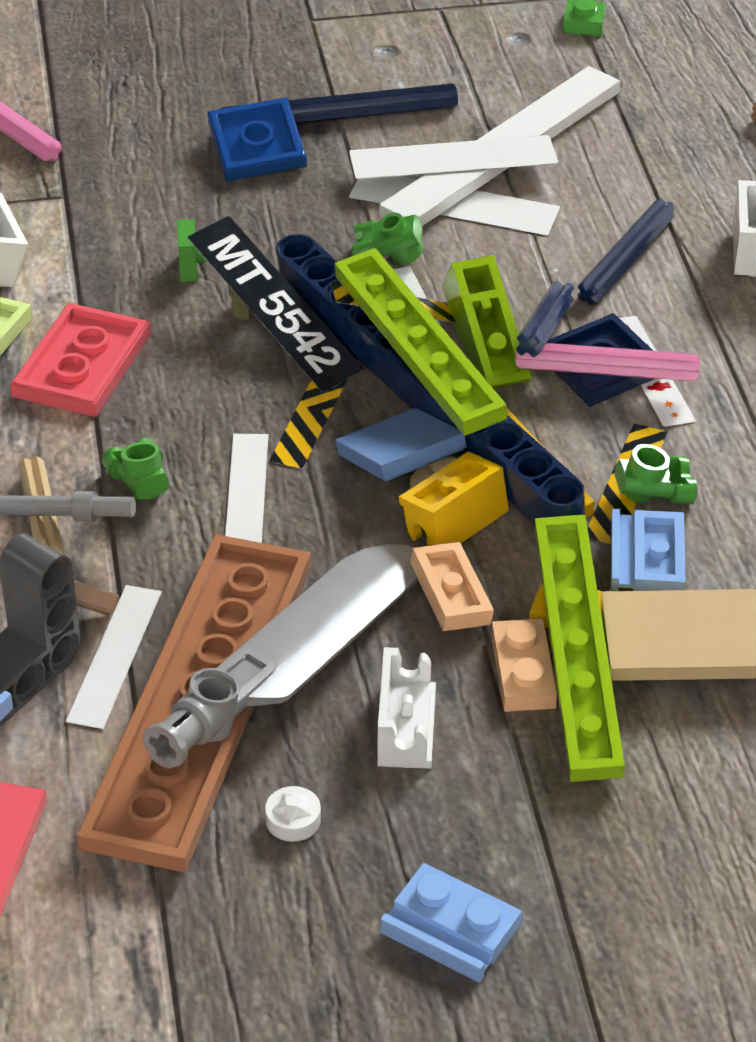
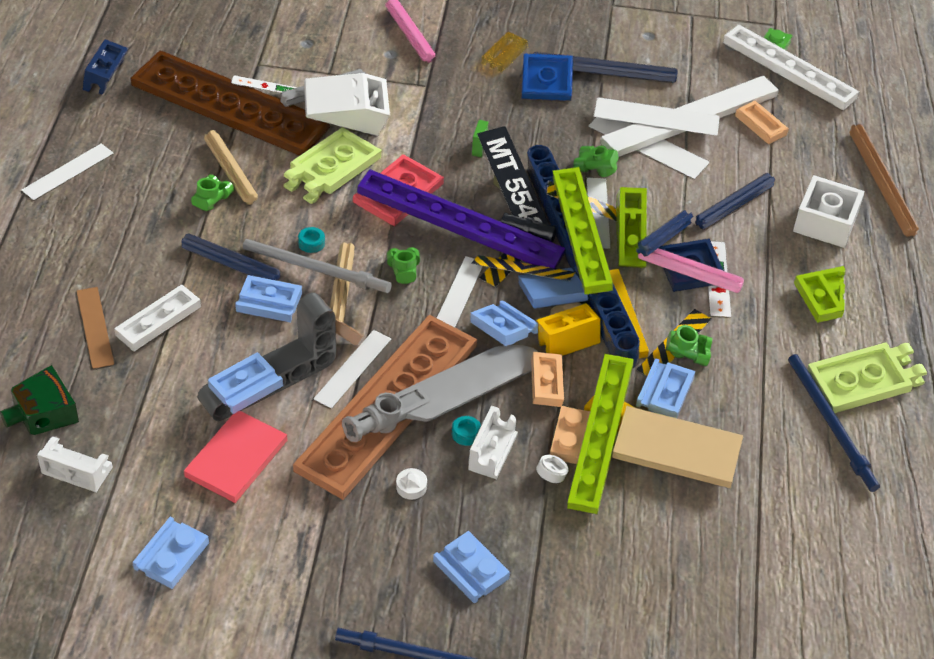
camera: 15 degrees right, 5 degrees up
(179, 121) = (509, 52): none -> clear yellow tile
(206, 378) = (460, 220): none -> dark purple plate
(322, 363) = (530, 226): none -> black pin
(339, 426) = (523, 268): none -> sticker
(344, 517) = (504, 323): none -> light blue plate
(349, 703) = (465, 430): none -> teal tile
(520, 724) = (552, 468): none -> white tile
(614, 132) = (761, 122): none -> light nougat tile
(624, 46) = (791, 67): none -> white plate

